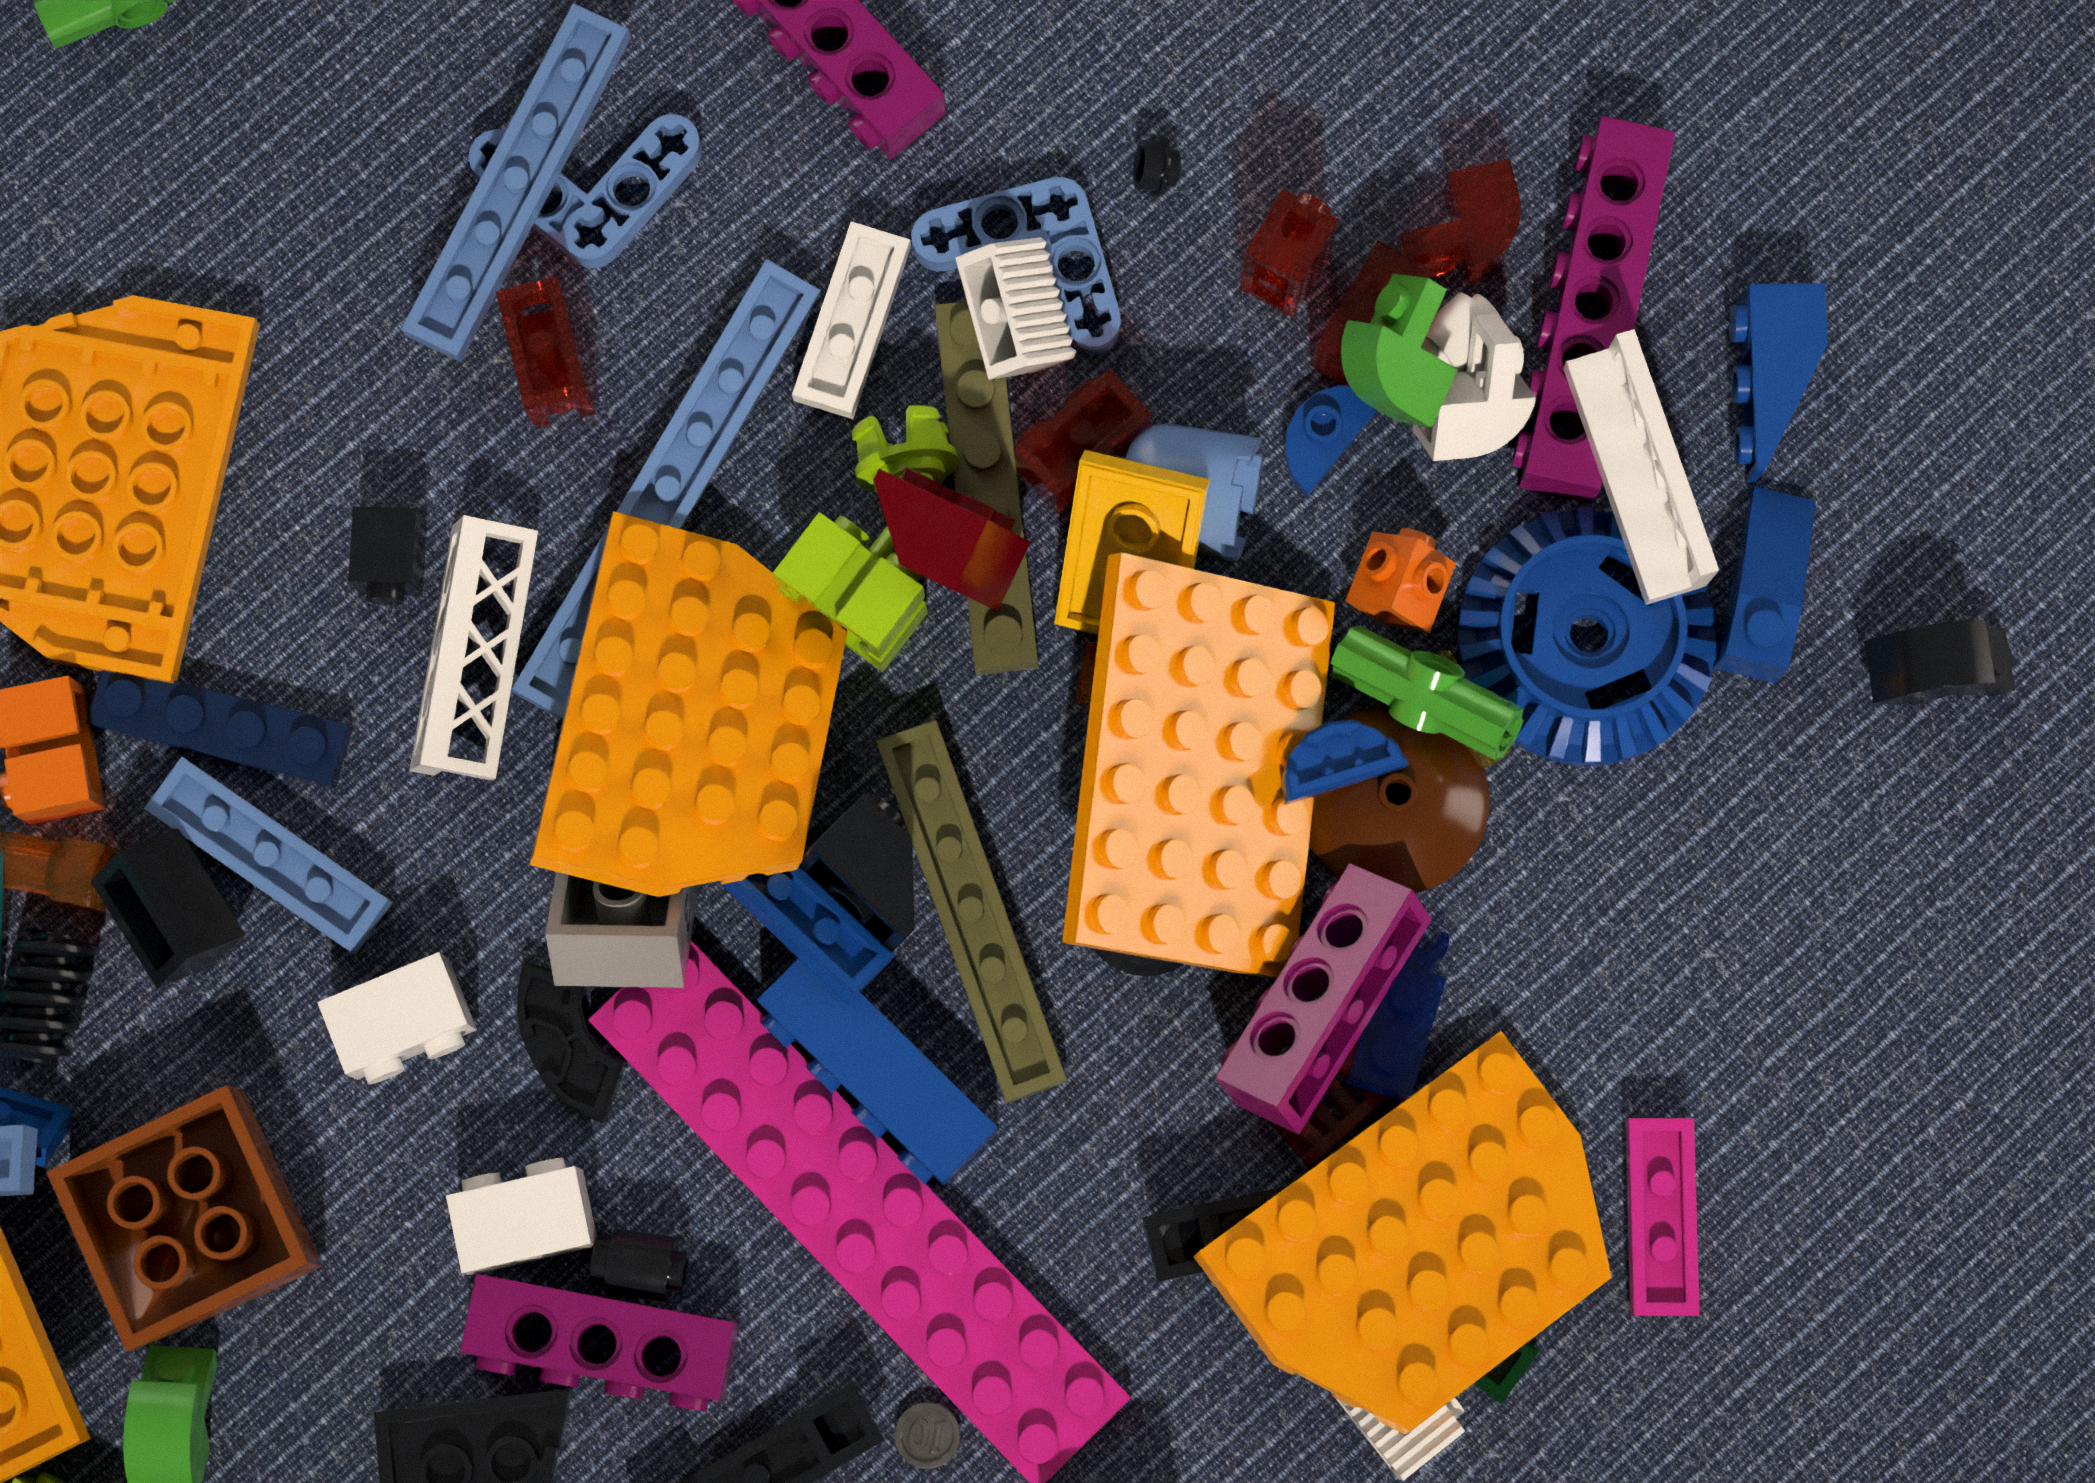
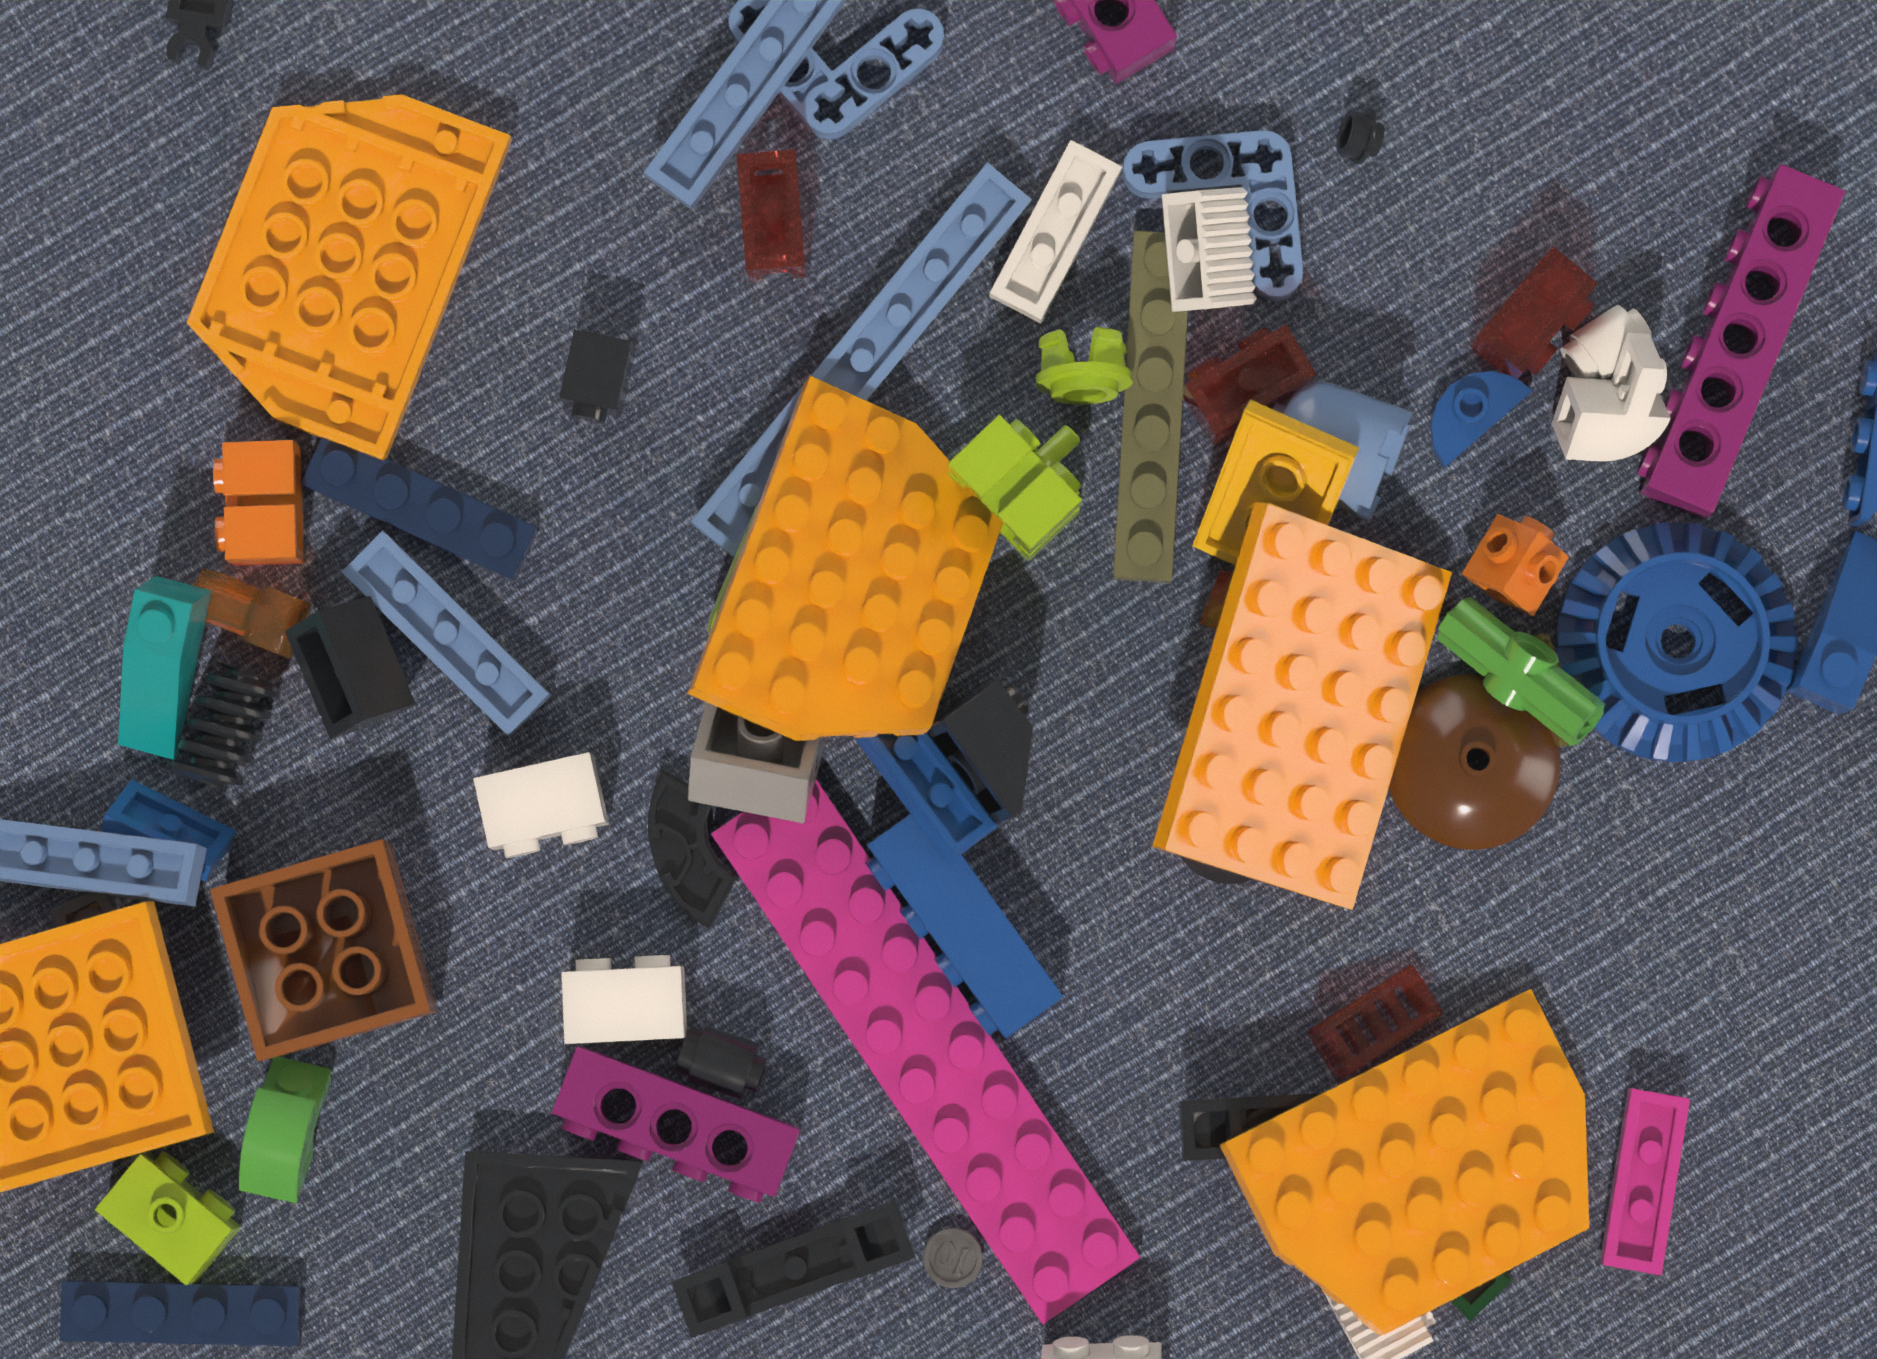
camera: 10 degrees right, 5 degrees up
(449, 647) = (641, 469): white fence -> none
(950, 536) = (1113, 463): dark red slope -> none
(971, 912) = (1072, 796): olive plate -> none
(1289, 251) = (1462, 253): clear red brick -> none
(1323, 1030) = (1375, 962): magenta brick -> none
(1338, 757) = (1427, 718): blue plate -> none
(1386, 356) = (1540, 359): bright green brick -> none
(1399, 1030) = (1441, 963): clear blue plate -> none
(1481, 228) = (1652, 243): clear red brick -> none
(1641, 470) = (1753, 503): white fence -> none

